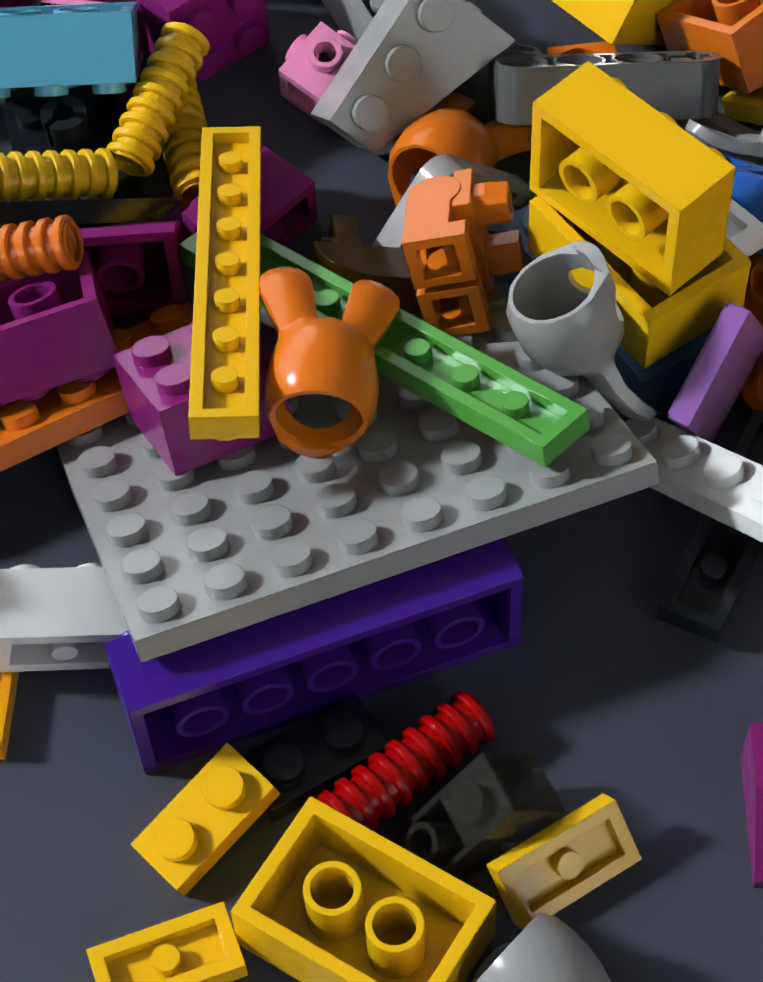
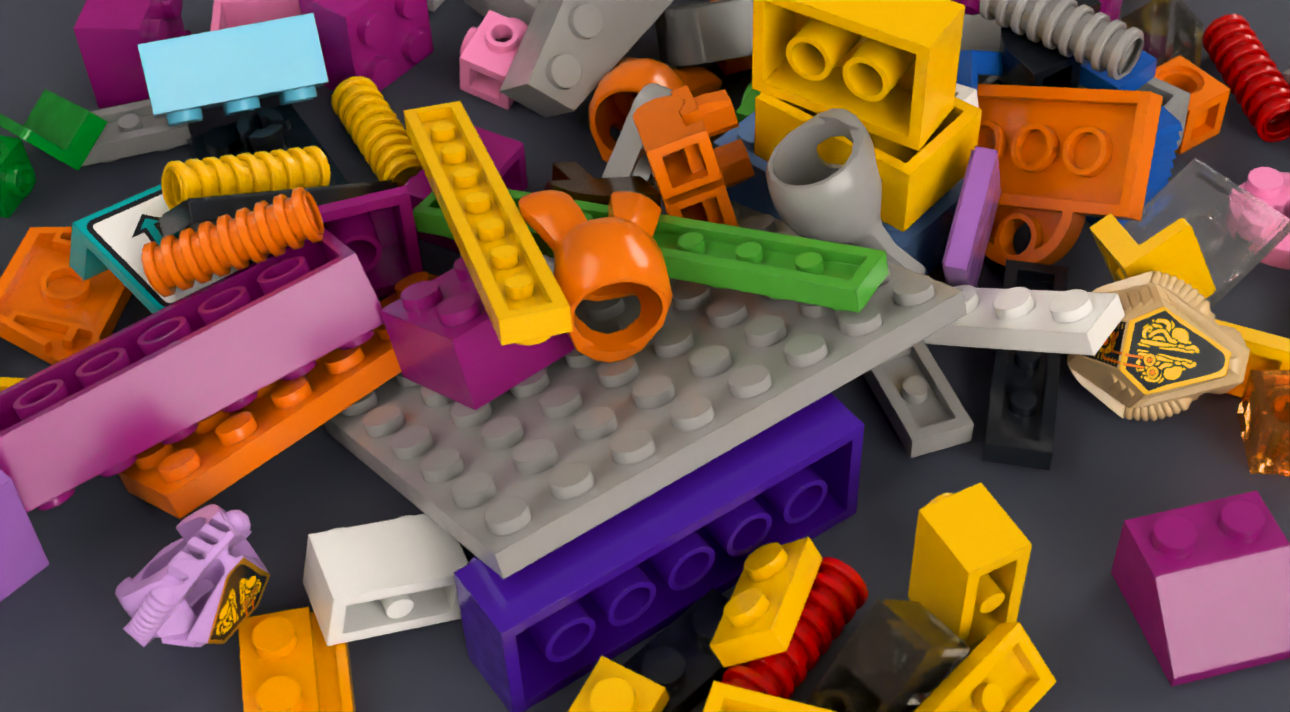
camera: 15 degrees left, 10 degrees down
(158, 98) = (351, 96): yellow piece -> none
(391, 724) = (766, 602): none -> yellow plate
(586, 734) = (968, 563): none -> yellow brick
(616, 549) = (920, 402): none -> light grey plate

